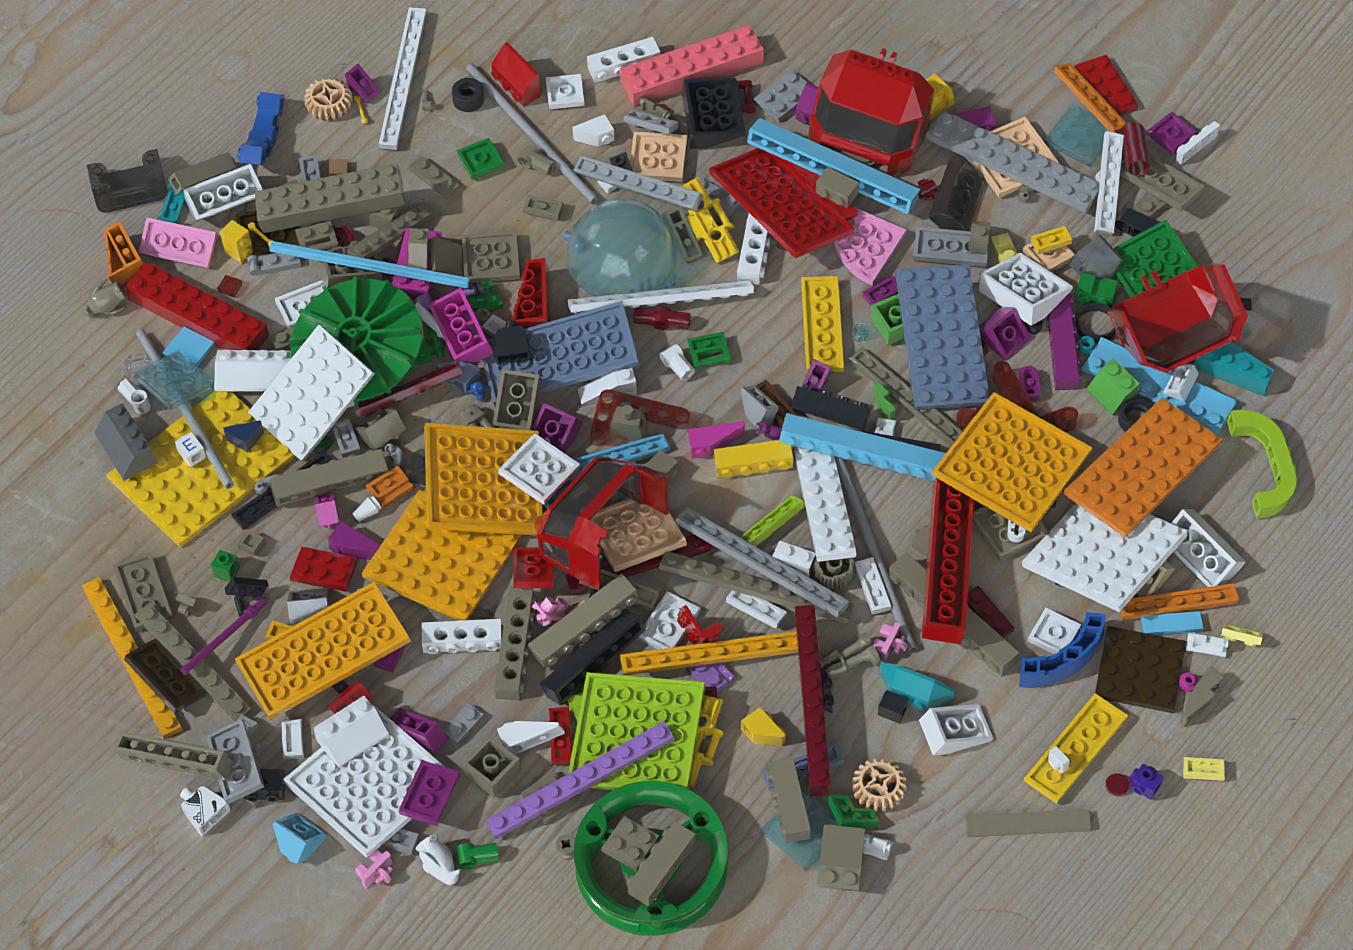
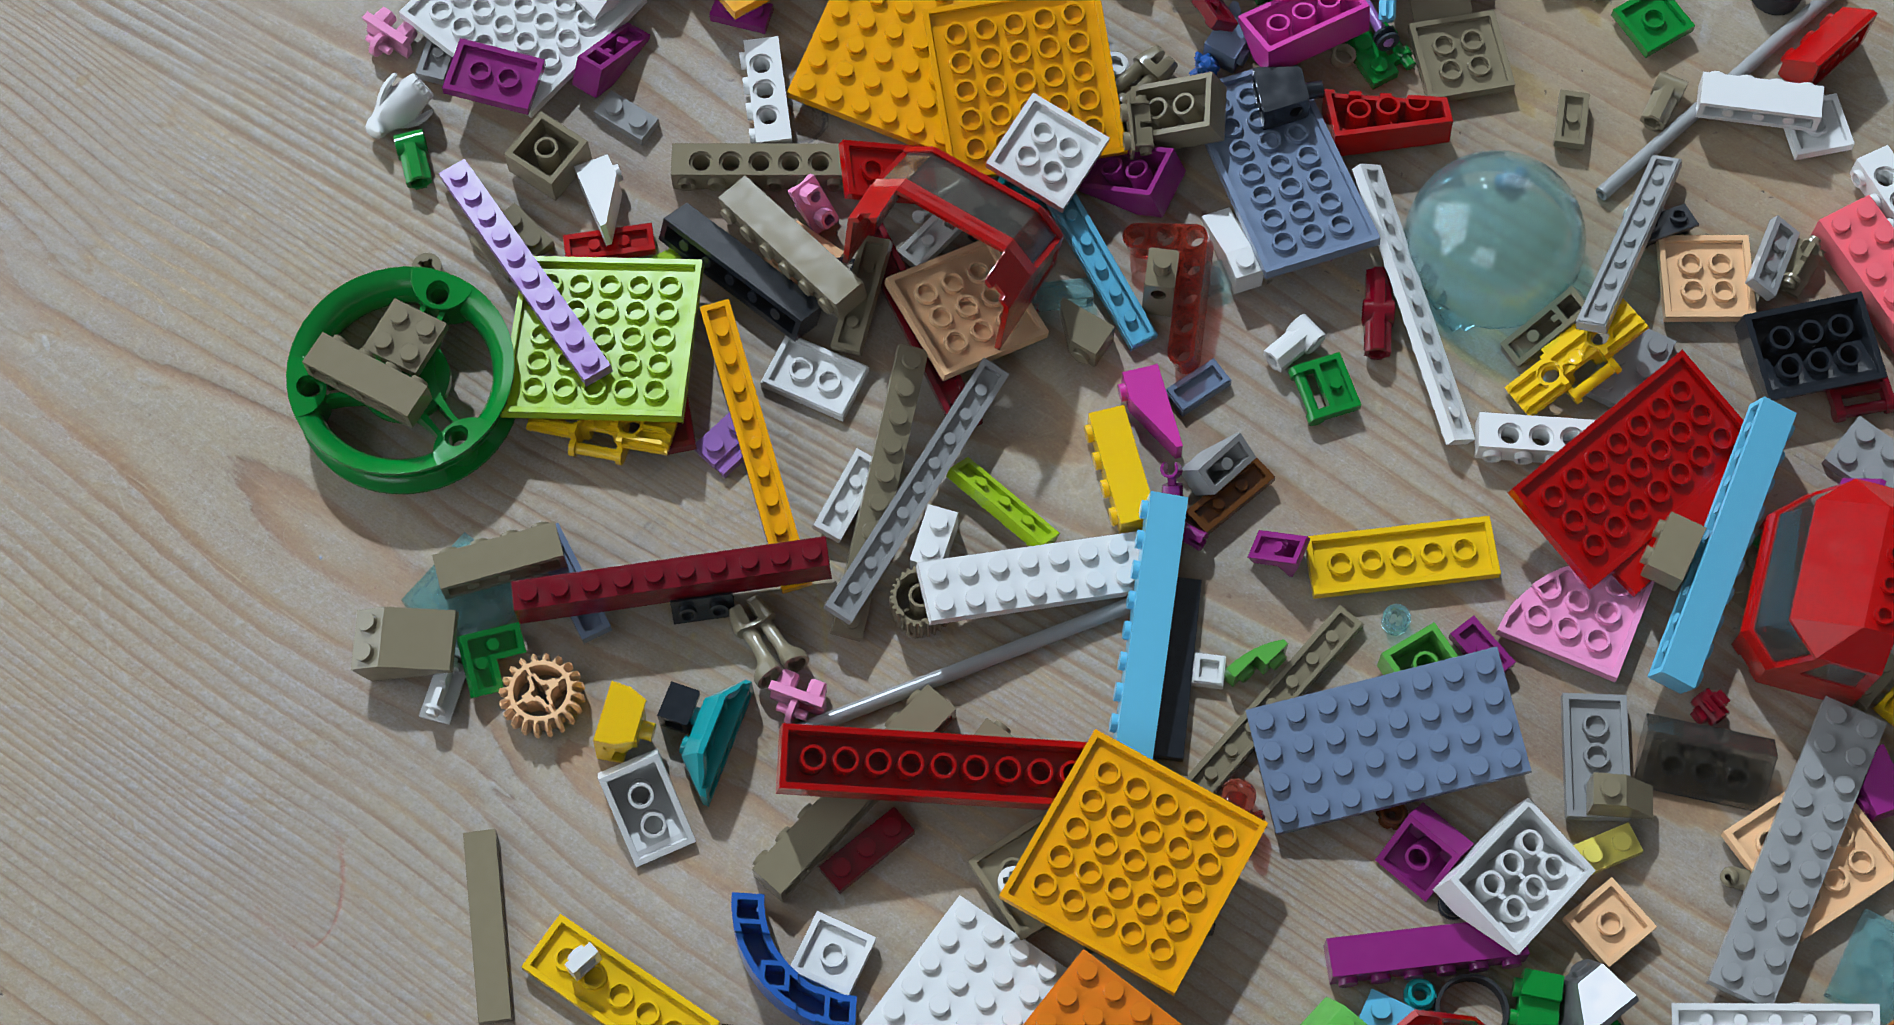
camera: 85 degrees right, 10 degrees up
(493, 324) = (1330, 74): white plate -> none
(517, 421) = (1134, 114): none -> dark tan hinge
(549, 111) = (1759, 101): none -> white brick
(594, 132) = (1739, 179): white slope -> none
(695, 633) = (784, 402): red bracket -> none
(698, 414) = (1198, 387): none -> sand blue tile
(762, 730) = (631, 519): yellow slope -> none
(831, 408) = (1228, 578): black brick -> none
(872, 585) = (900, 666): white plate -> none
(904, 735) = (621, 723): none -> yellow brick
(1017, 393) = (1272, 894): clear red beam -> none
(1032, 384) = (1322, 896): magenta plate -> none
(1051, 240) = (1628, 920): yellow plate -> none

